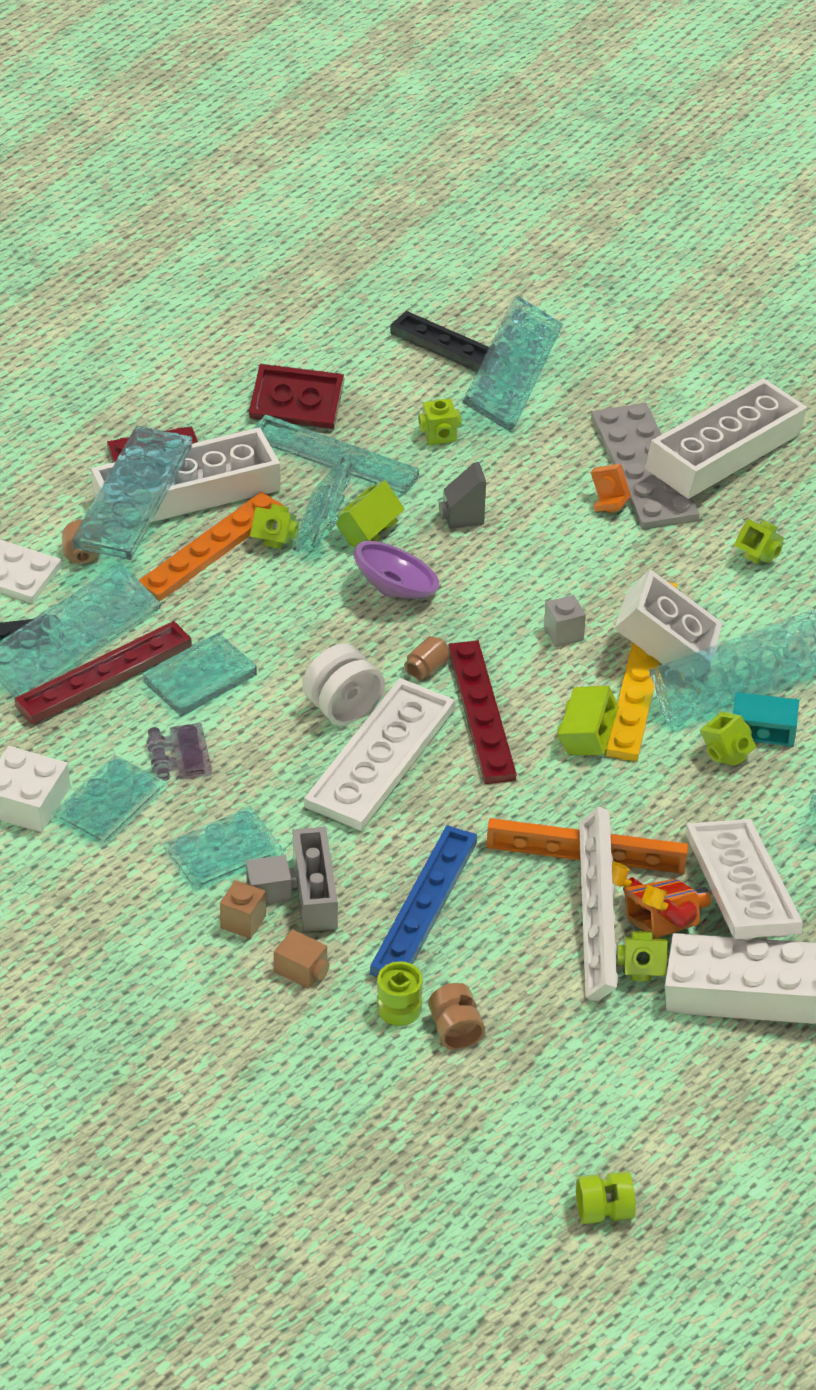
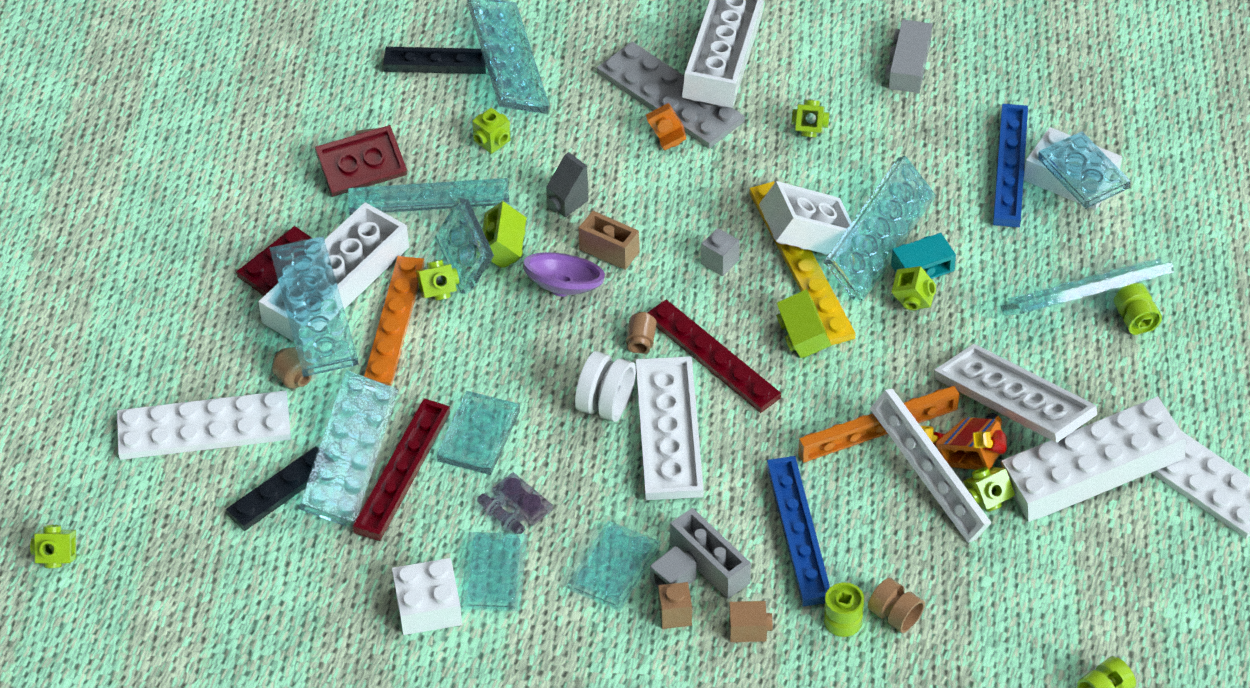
camera: 30 degrees left, 5 degrees up
(464, 562) = (609, 240): none -> medium nougat brick

